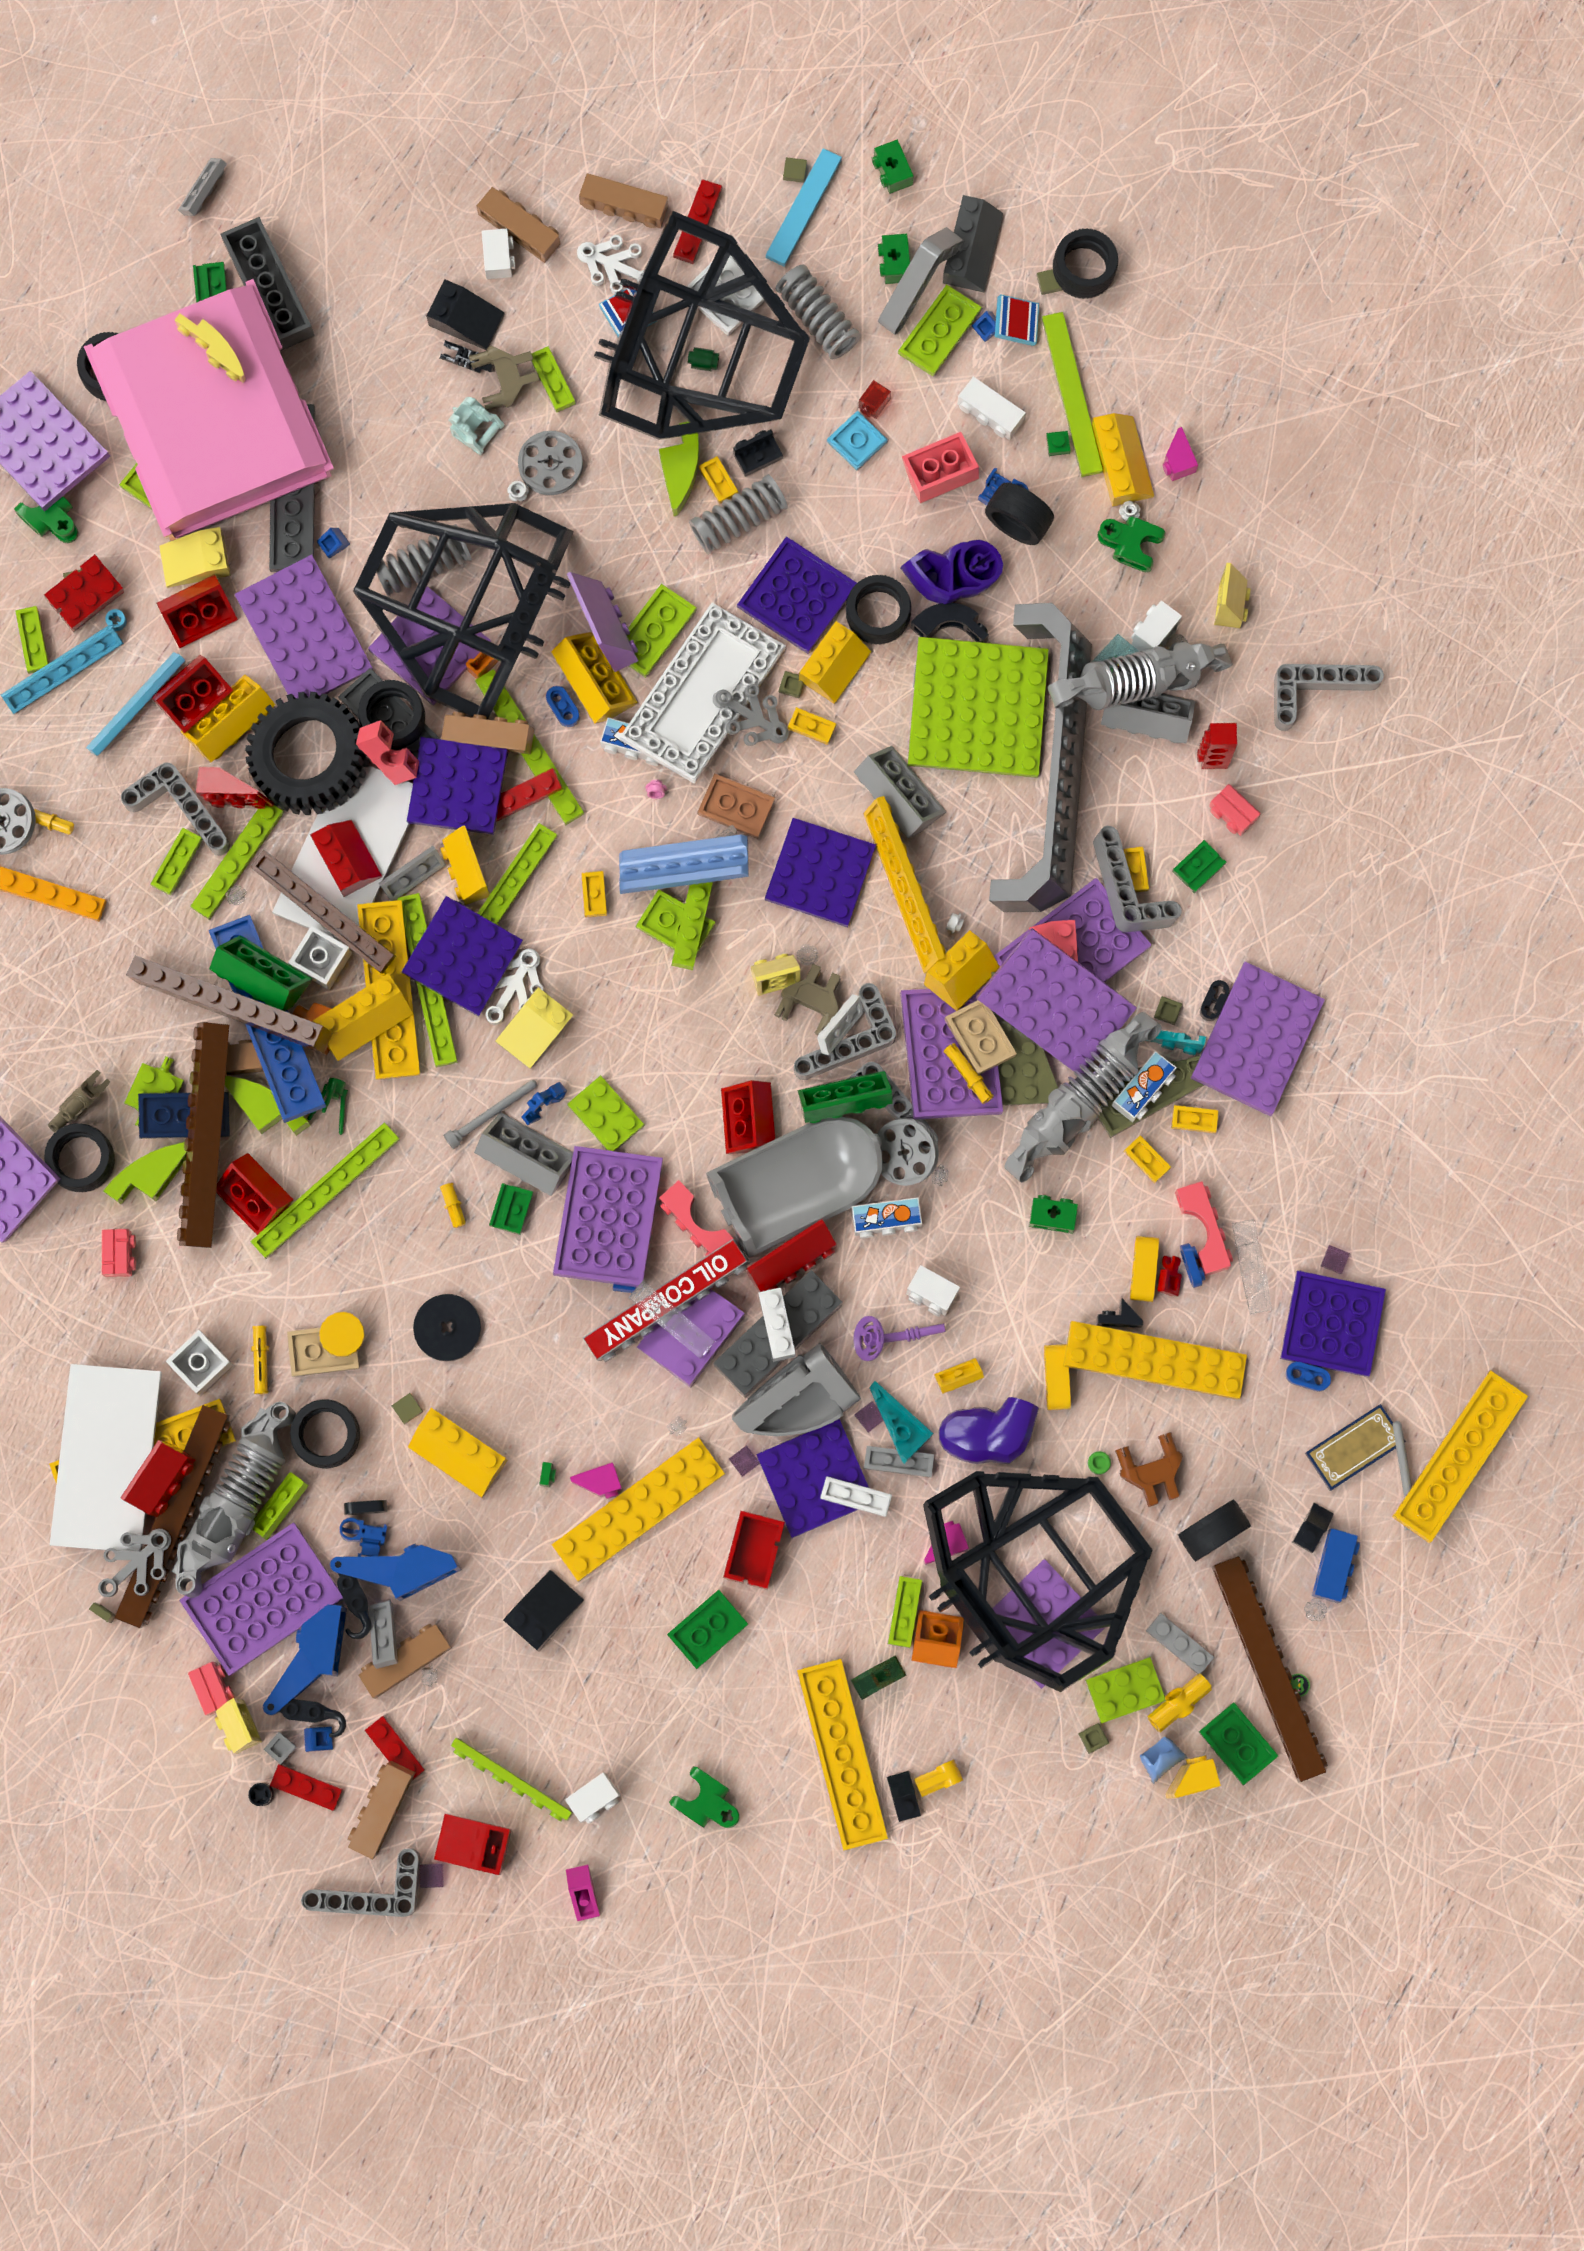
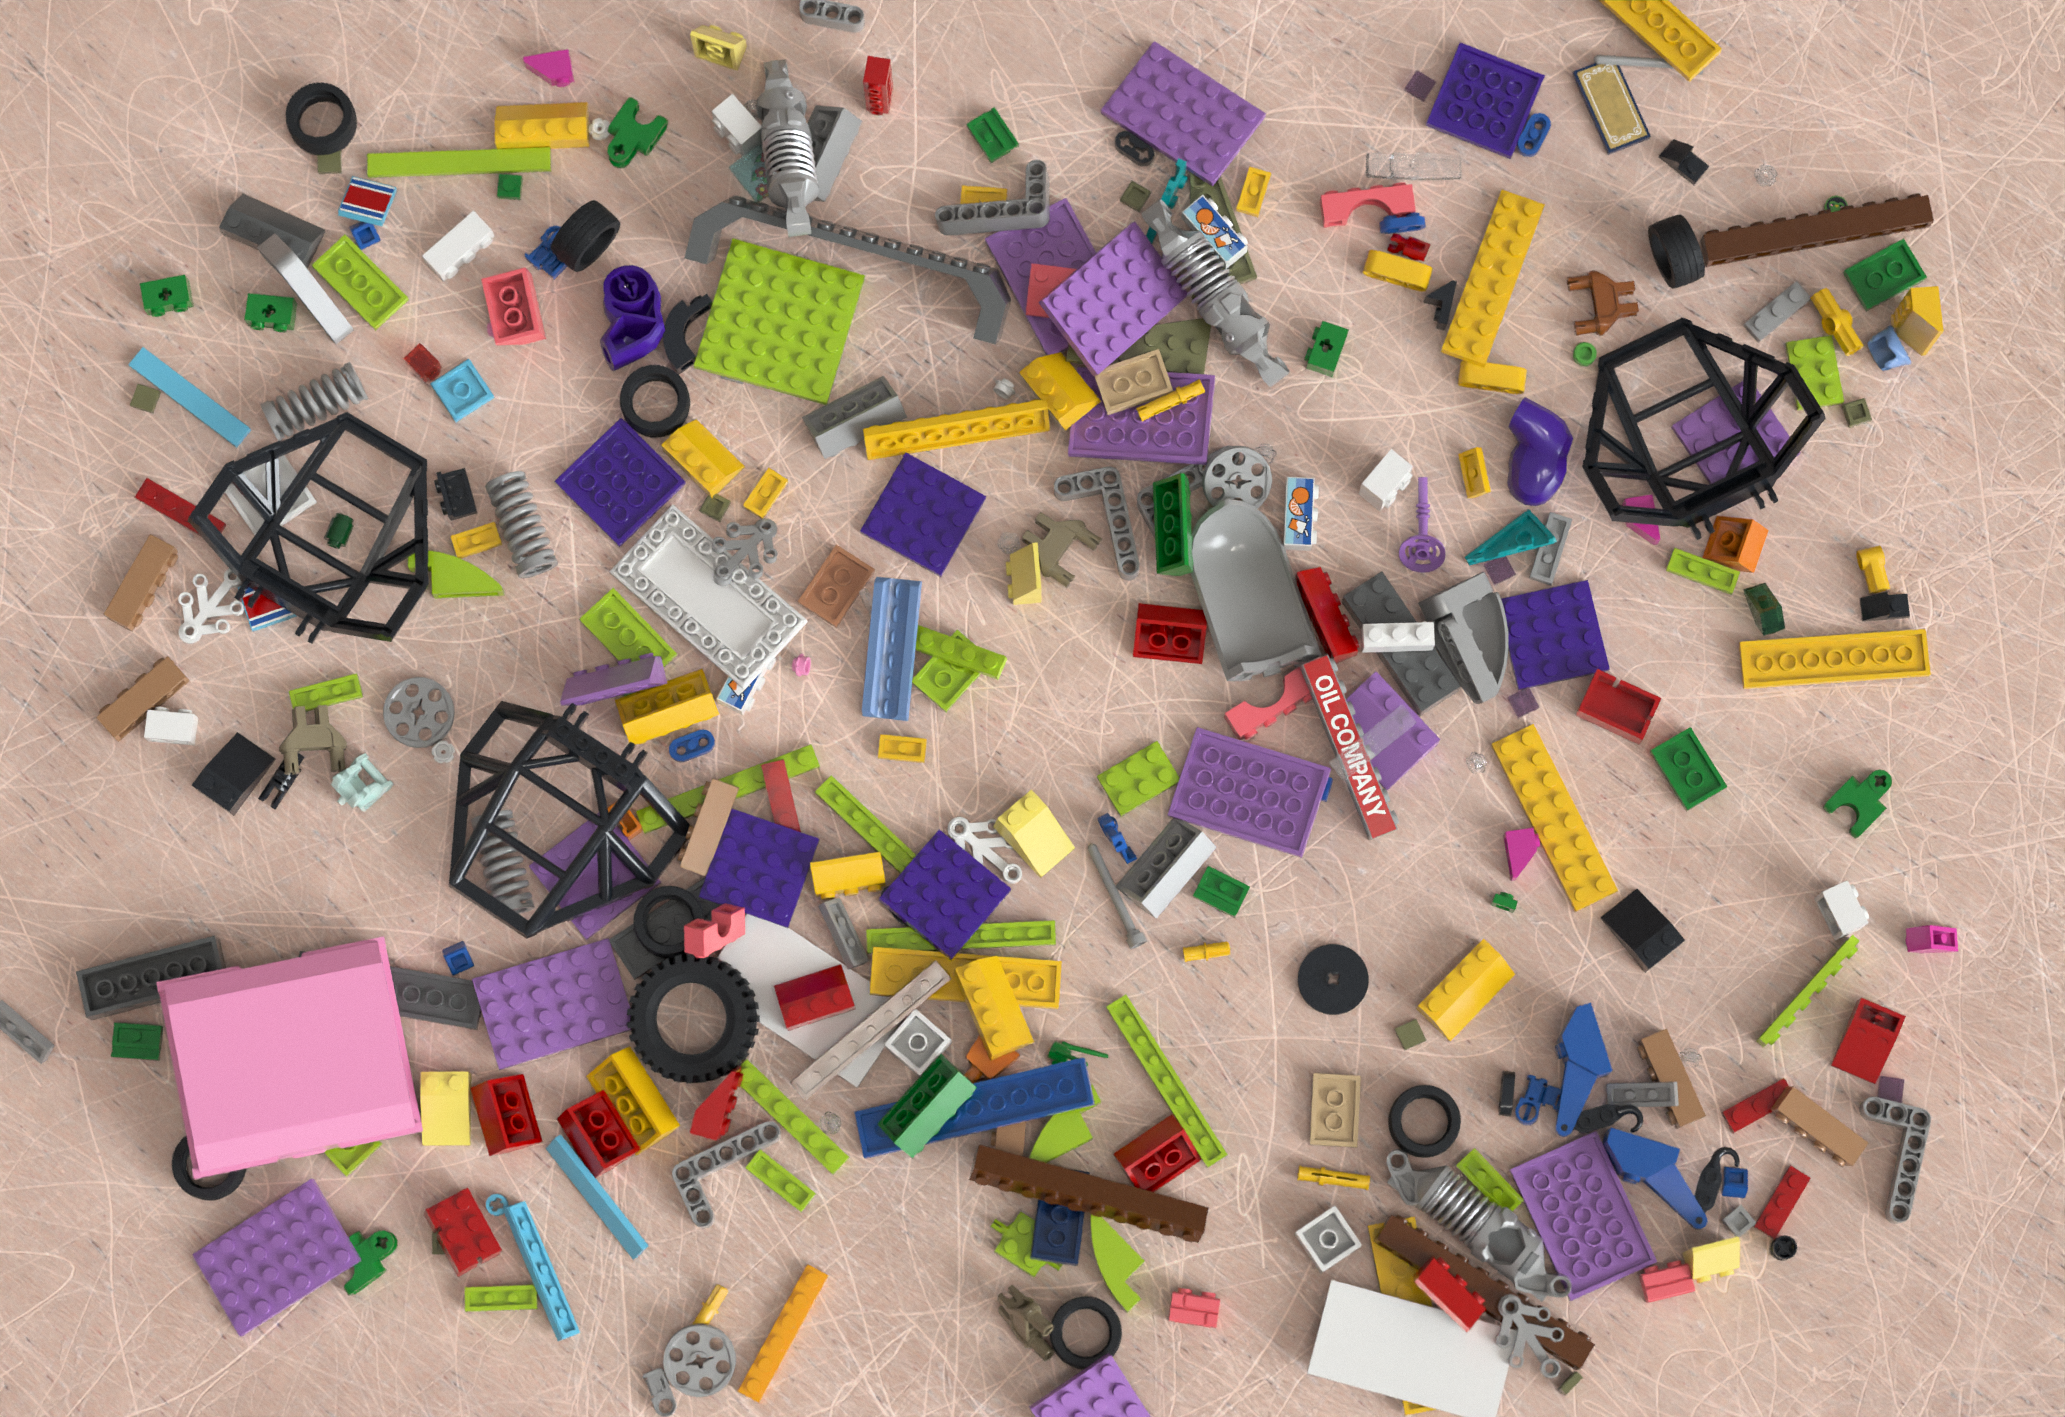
camera: 80 degrees left, 0 degrees up
(218, 352) = (239, 1026): light yellow slope -> none
(229, 1004) = (955, 1143): brick -> none
(342, 1334) = (1324, 1086): yellow tile -> none
(840, 1024) = (1092, 520): white plate -> none
(856, 1496) = (1580, 596): white tile -> none
(1147, 1159) = (1286, 246): yellow plate -> none
(1234, 810) = (941, 88): coral brick -> none
(1335, 1566) = (1726, 147): blue brick -> none

